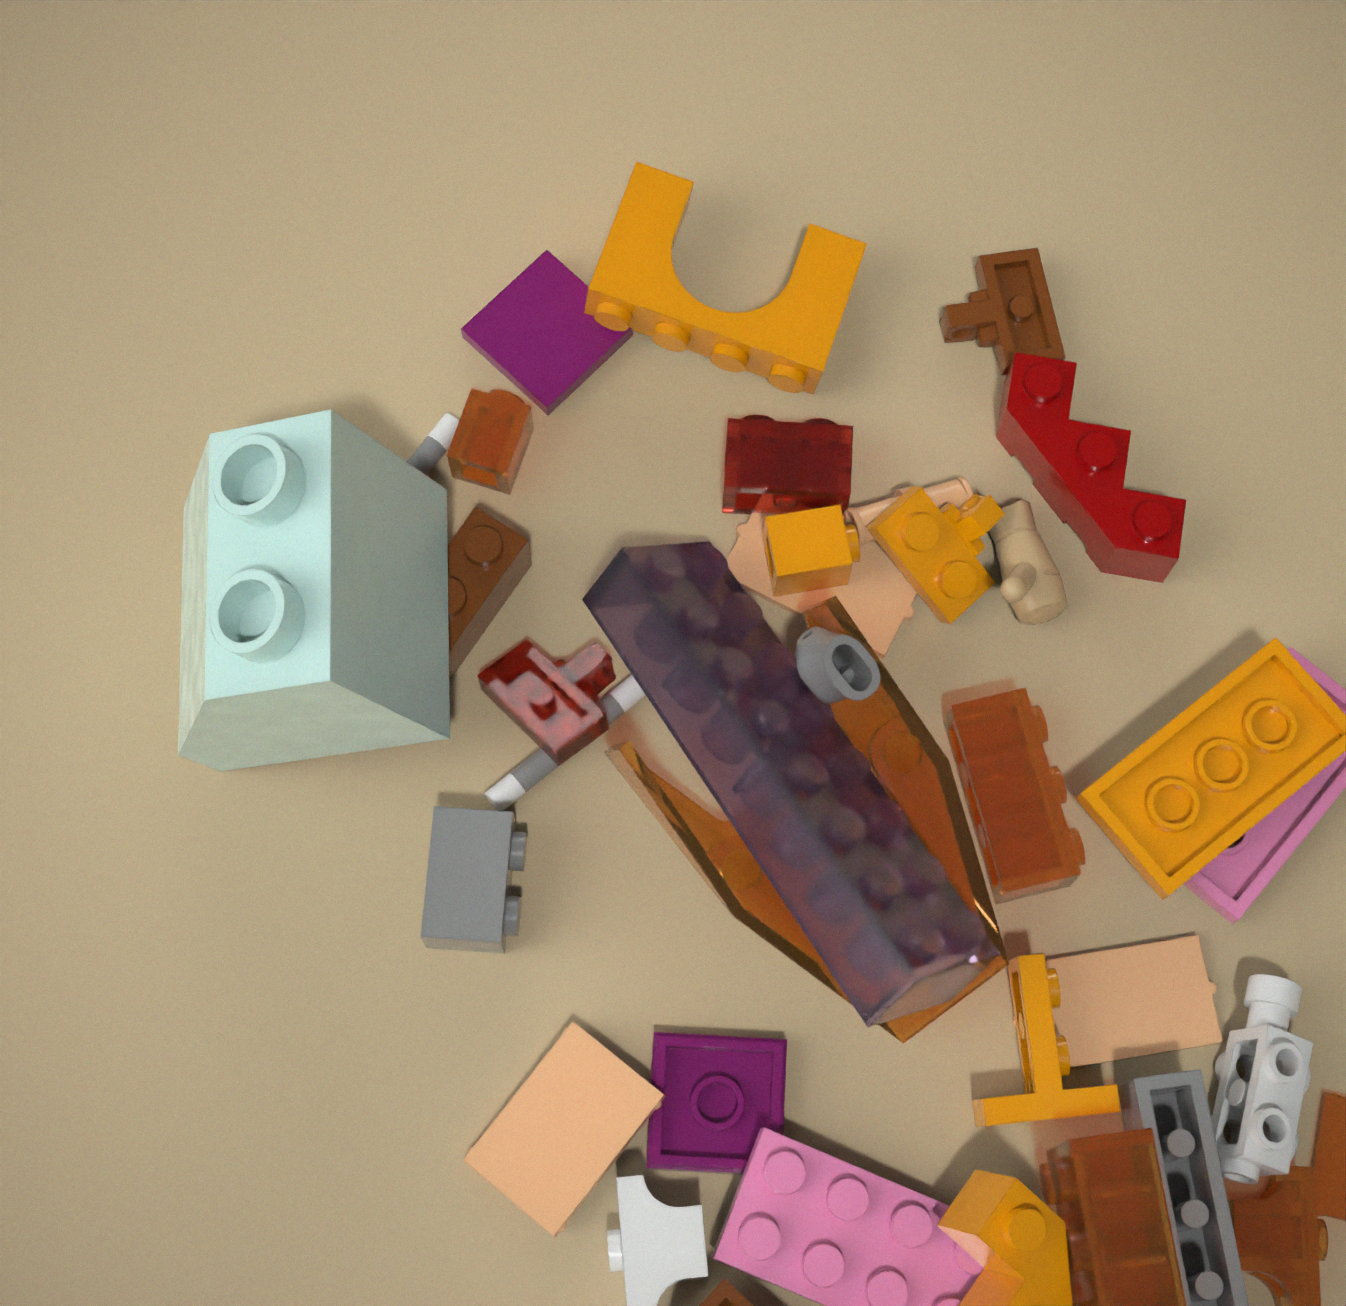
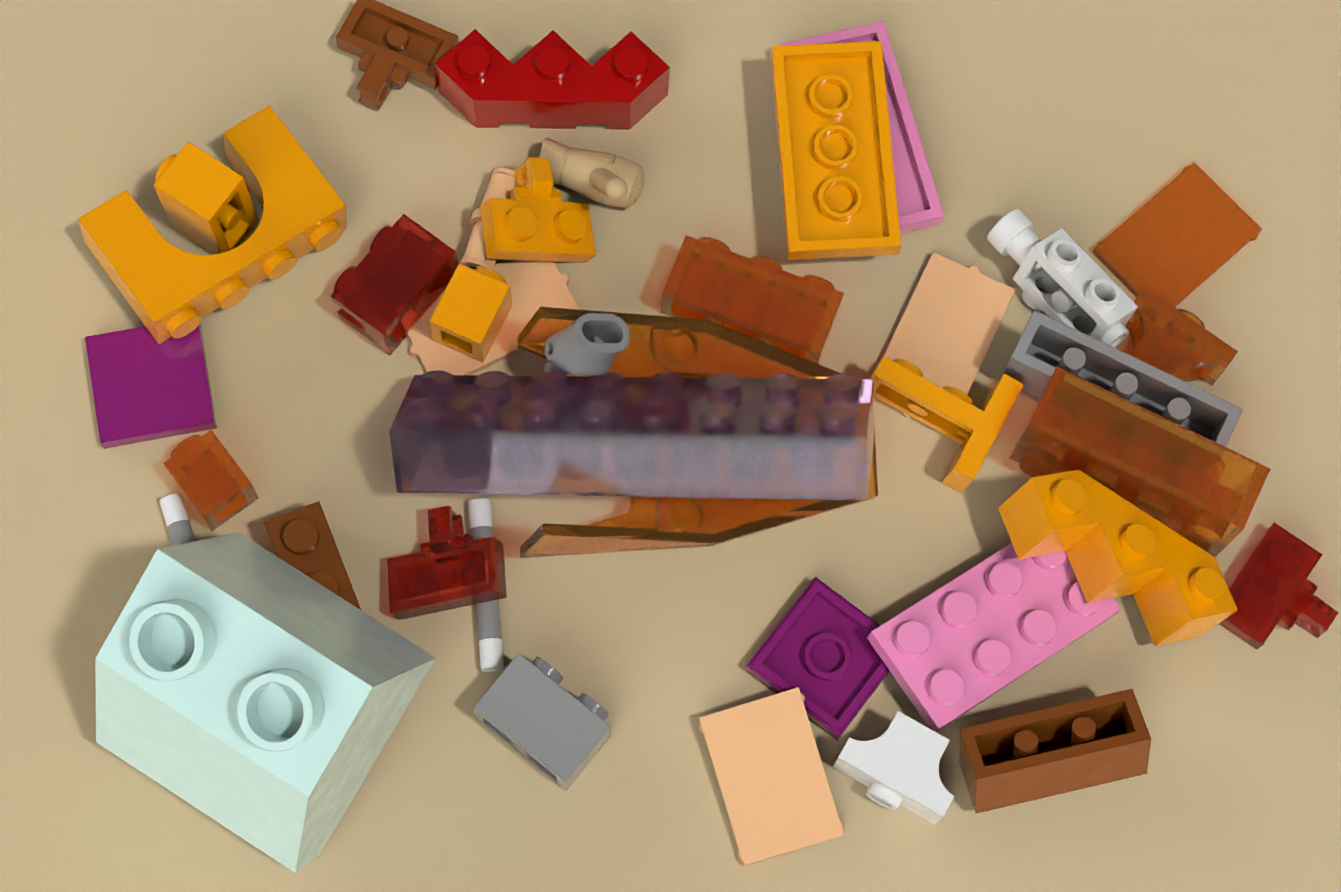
camera: 60 degrees left, 0 degrees up
(736, 250) = (205, 199): none -> light orange brick

